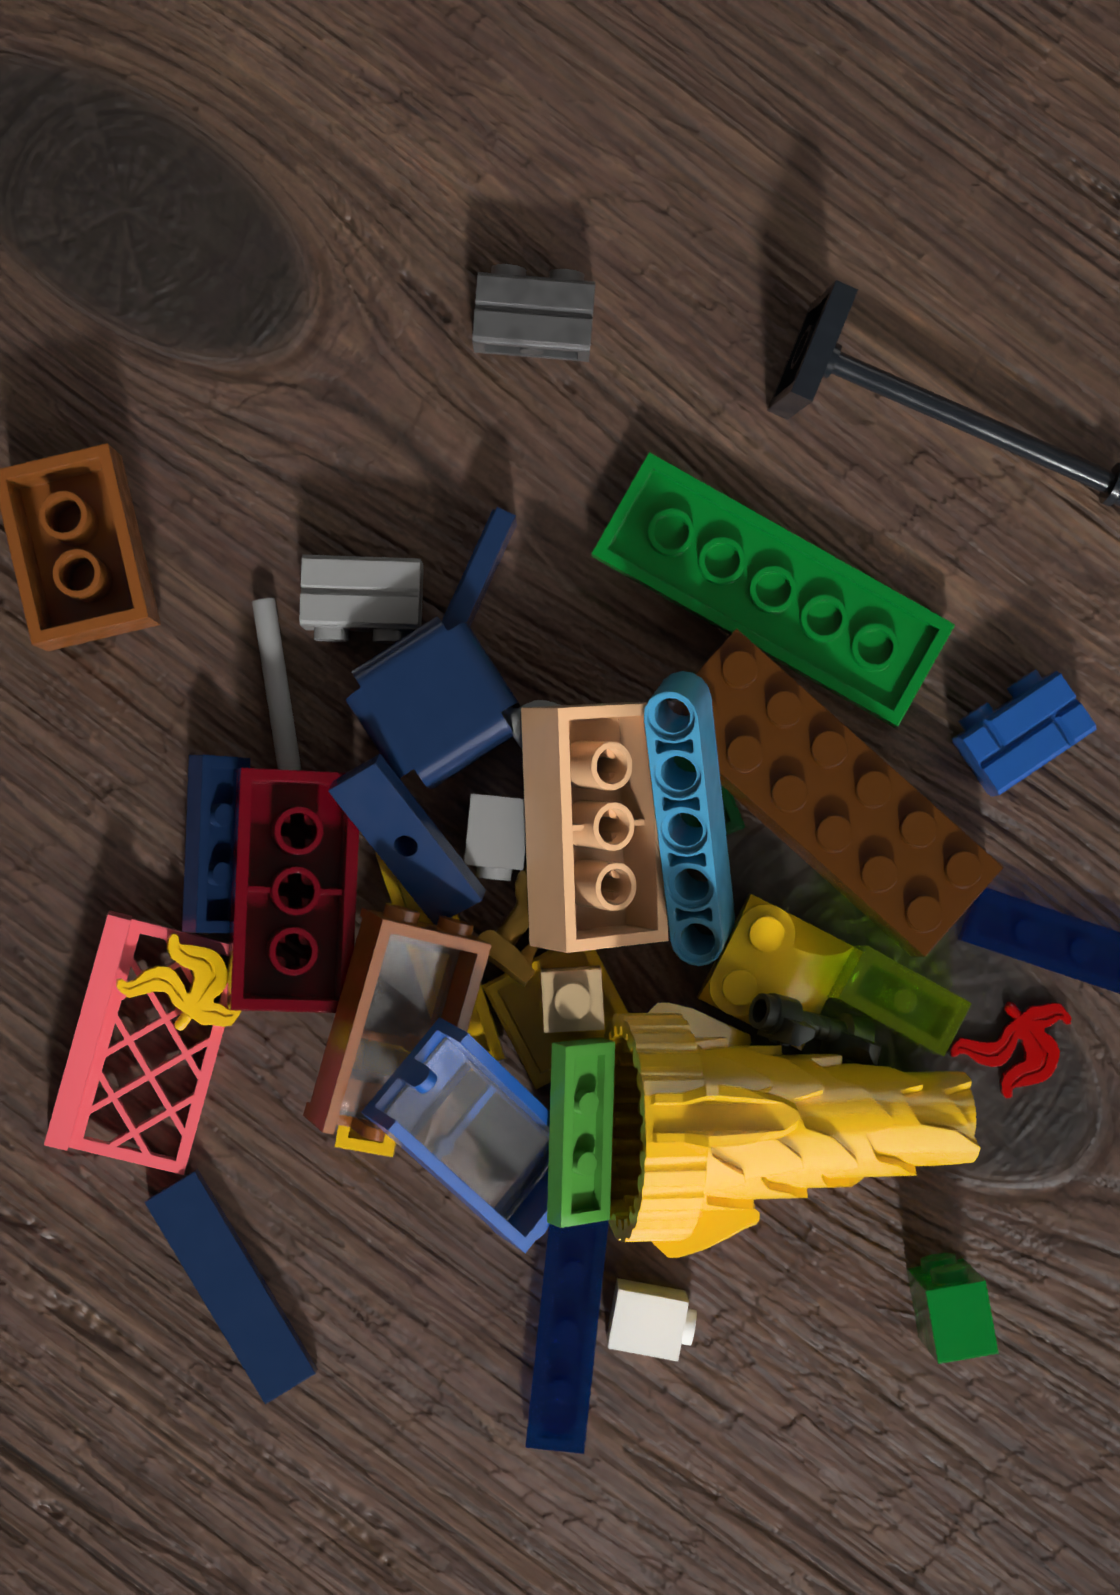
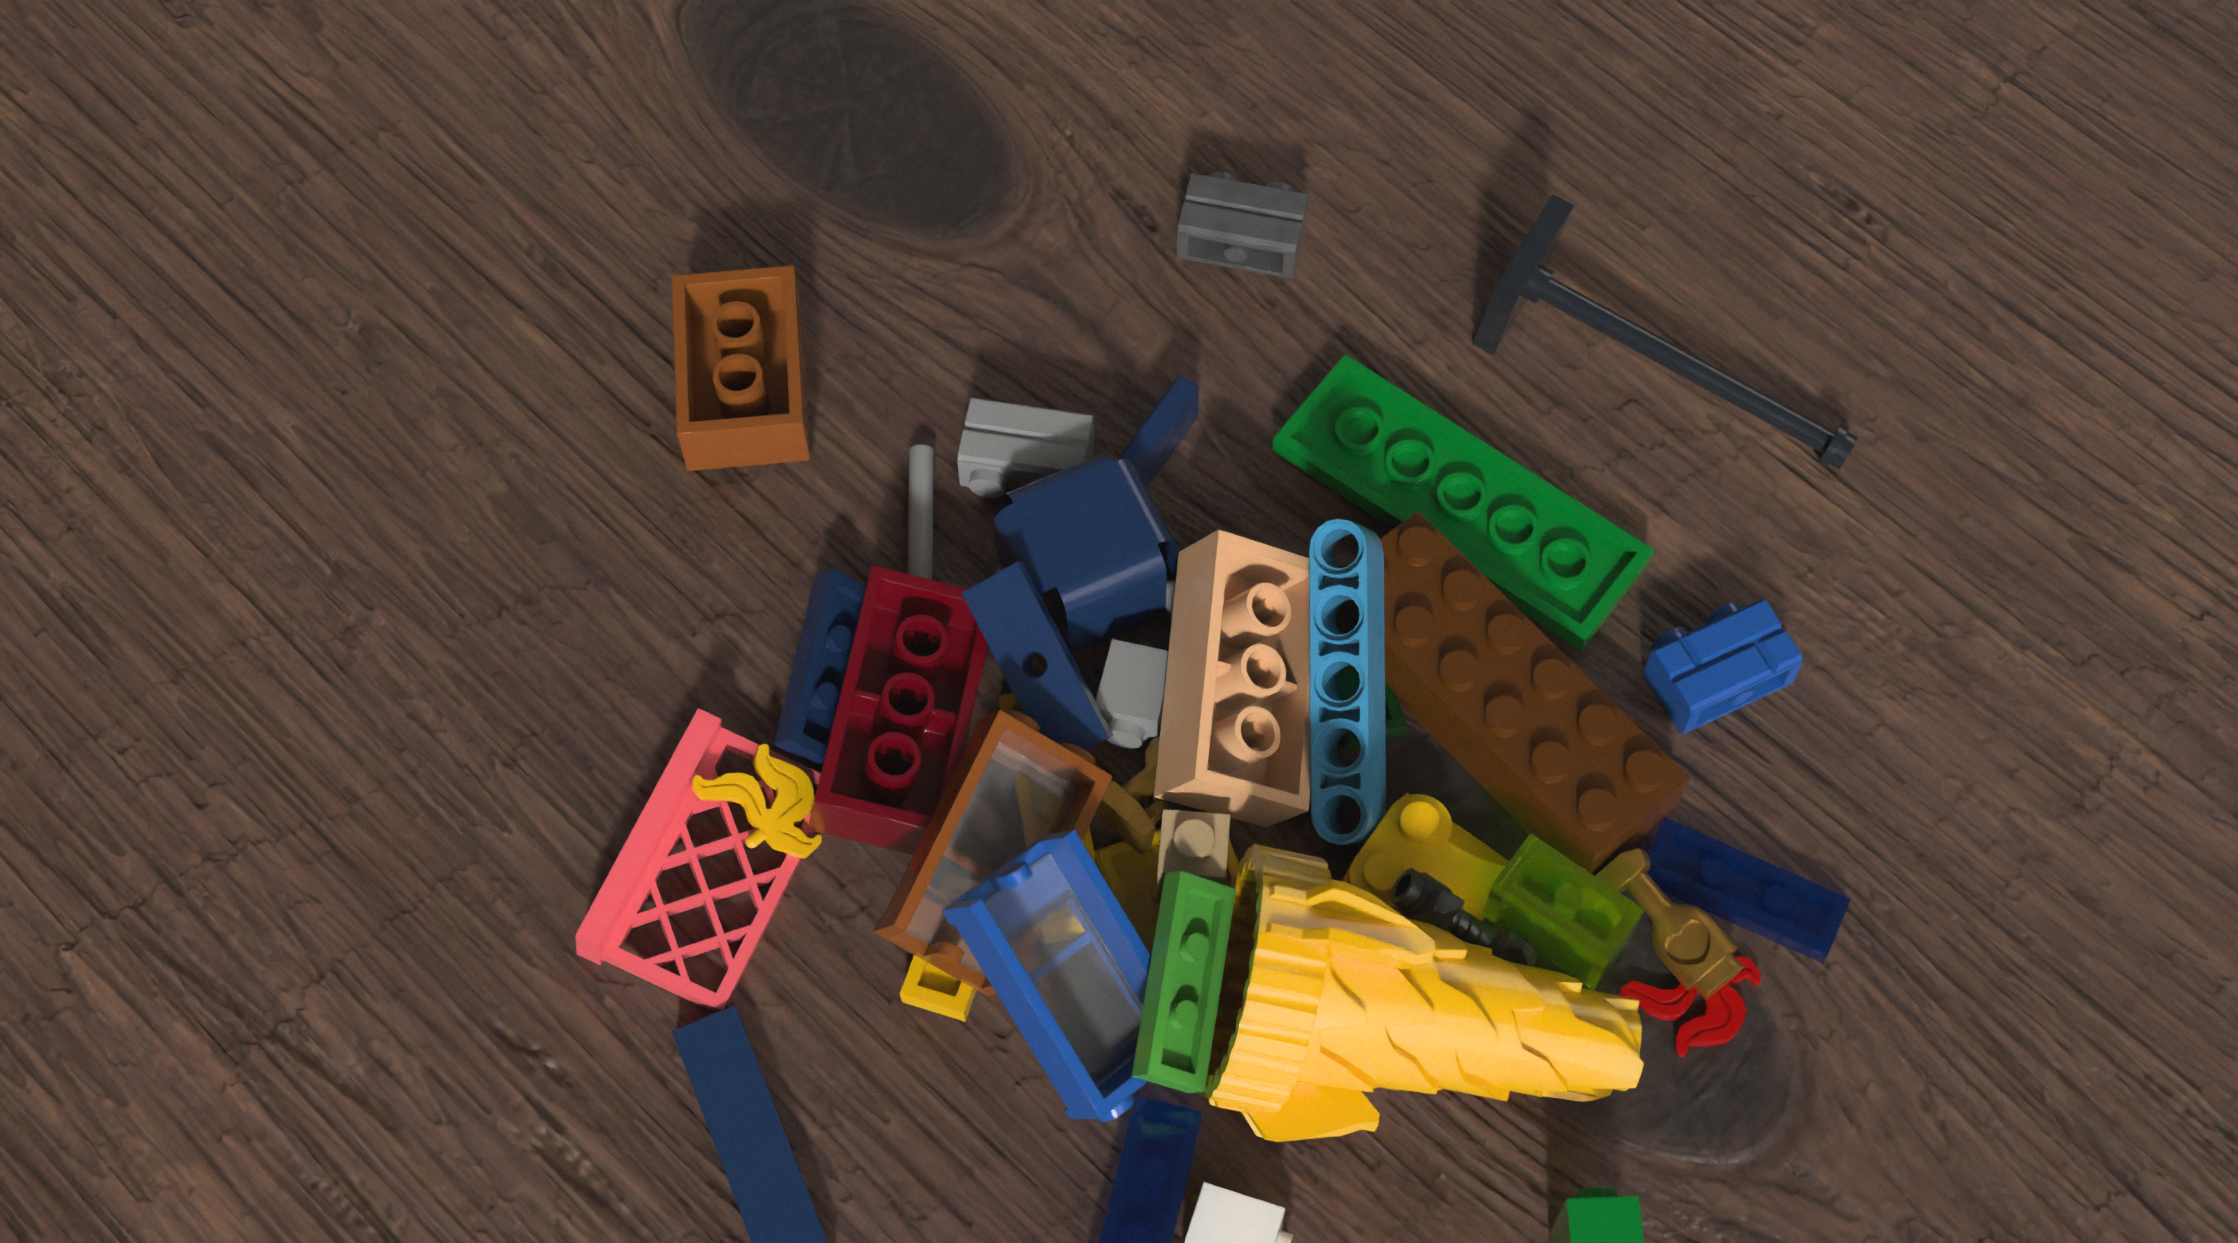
camera: 10 degrees right, 25 degrees down
(1000, 997) = (1681, 933): none -> pearl gold piece

